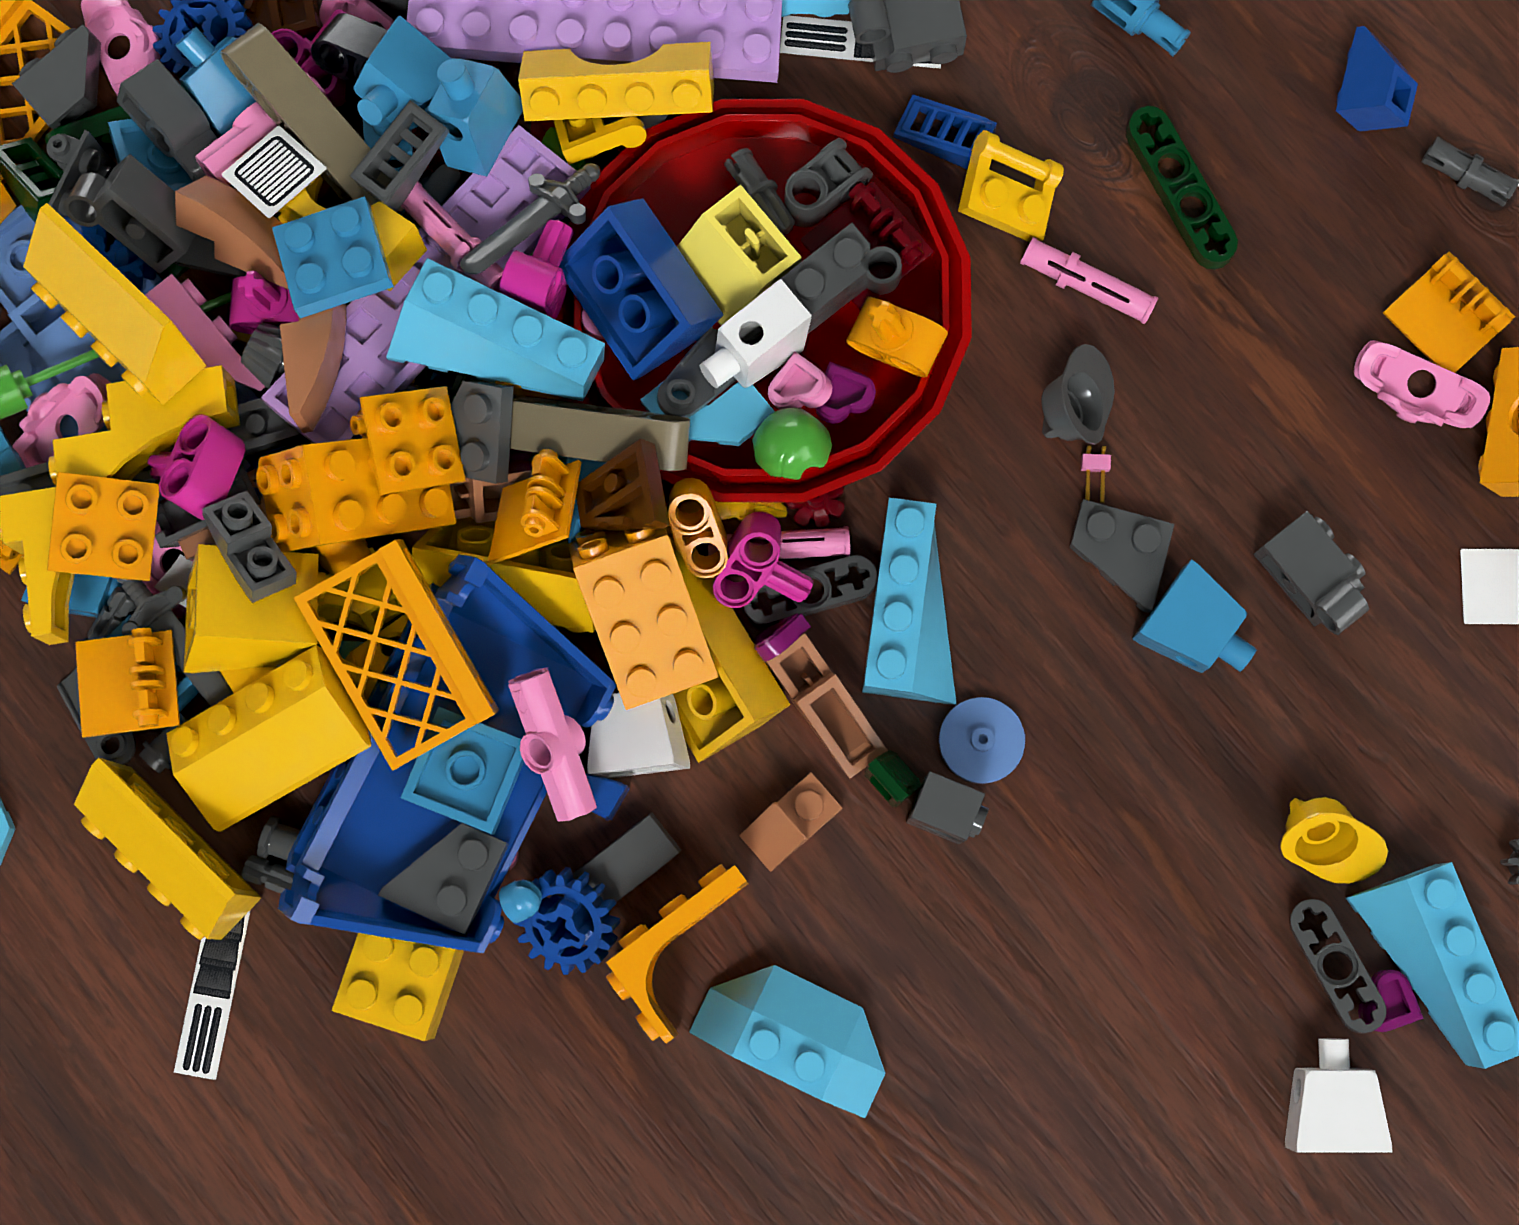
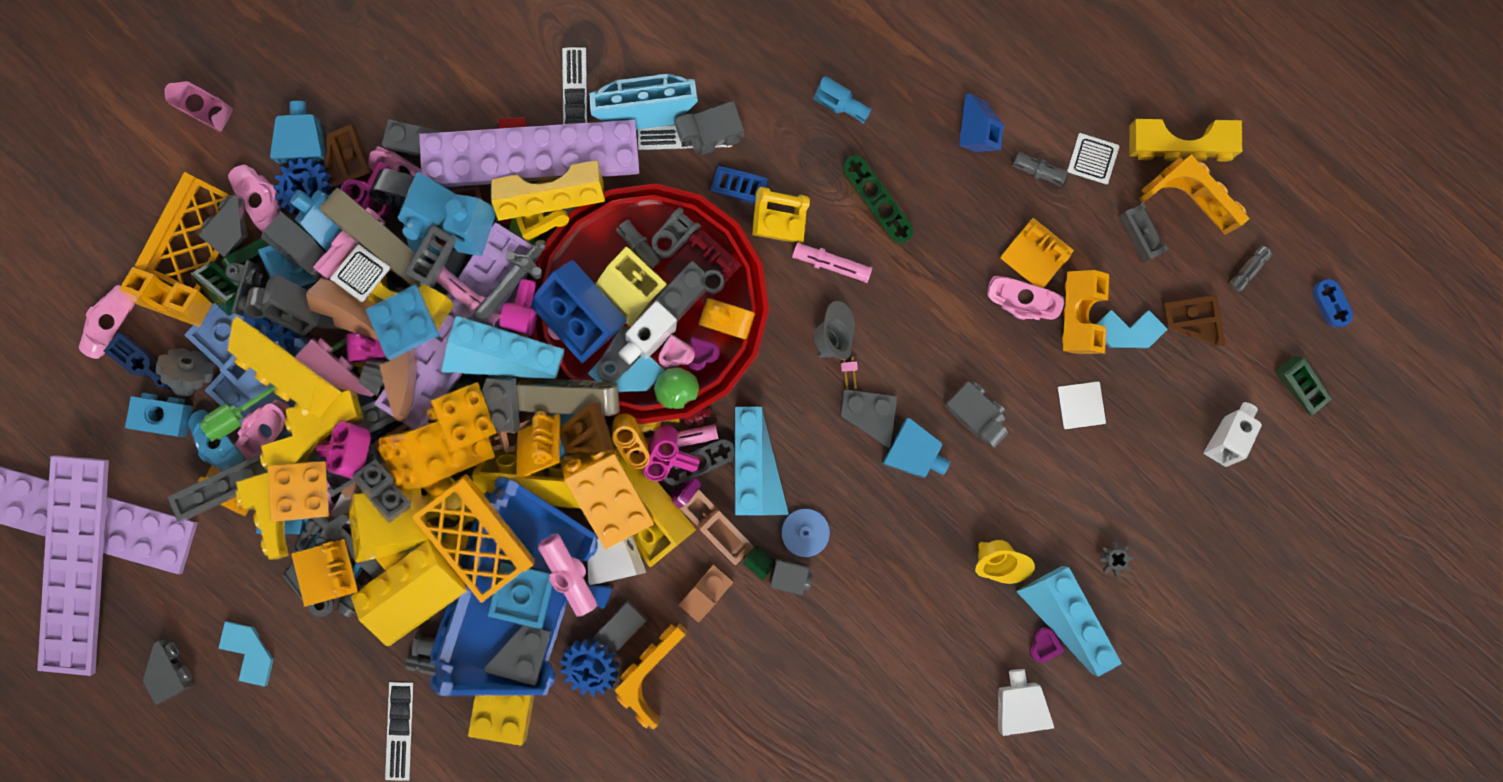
camera: 15 degrees left, 5 degrees up
(164, 849) = (360, 660): yellow slope -> none
(520, 900) = (562, 661): dark azure hinge -> none
(795, 1036) = (724, 711): medium azure wedge -> none
(1343, 1005) = (1020, 651): dark grey beam -> none

